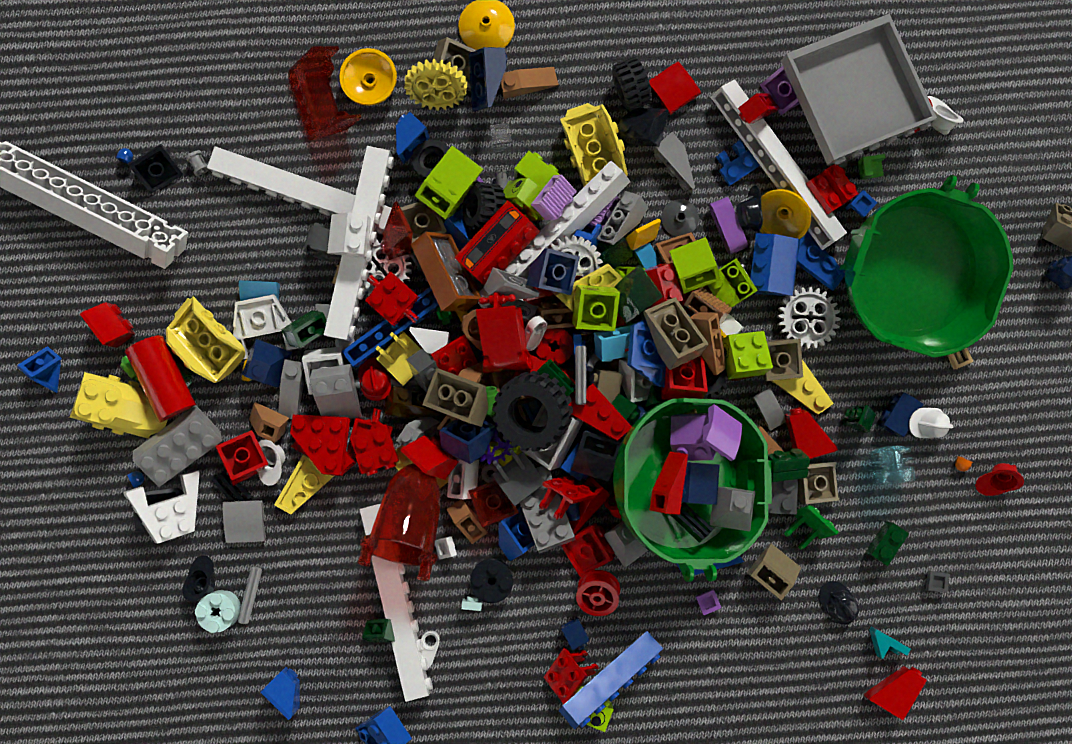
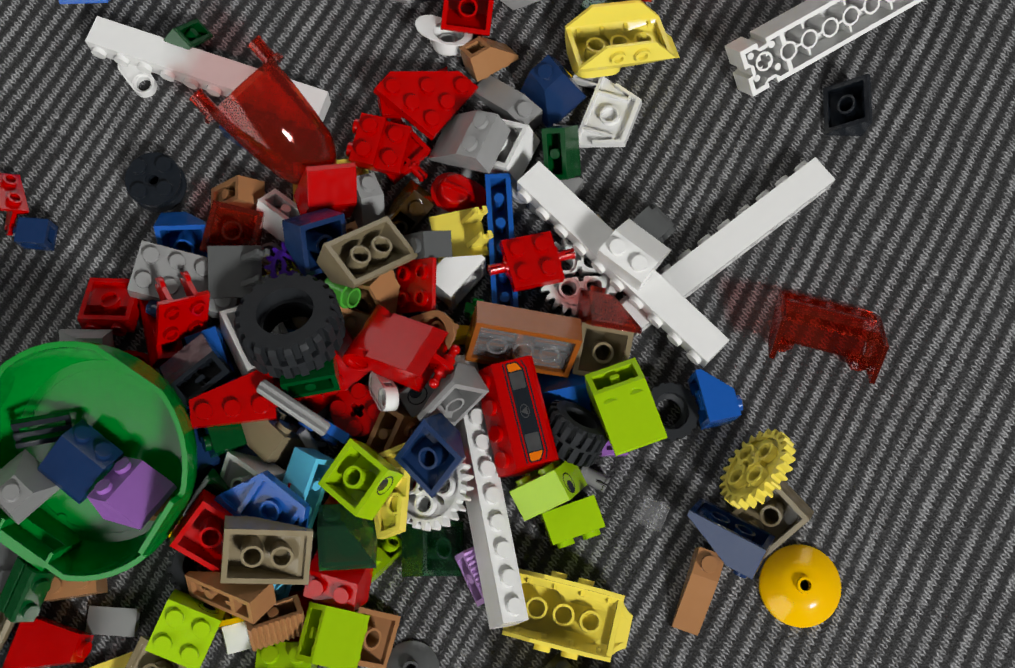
camera: 125 degrees right, 10 degrees down
(125, 155) = (883, 85): blue hinge -> none
(197, 162) = (829, 154): light grey bush -> none
(257, 289) = (642, 132): dark azure slope -> none
(301, 485) = (396, 47): light yellow wing -> none
(366, 65) = (831, 390): yellow dish -> none
(445, 547) = (225, 157): white plate -> none
(472, 603) = (147, 144): light aqua plate -> none
(554, 197) = (525, 517): lavender brick -> none
(590, 235) = (457, 535): blue panel -> none
(598, 593) = (55, 283): red wheel -> none
(624, 218) = (451, 591): light grey slope -> none
(643, 234) = (417, 605): yellow slope -> none
(646, 256) = (400, 595): dark azure slope -> none
(669, 486) = (93, 424): red slope -> none
(722, 432) = (104, 526): medium lavender slope -> none

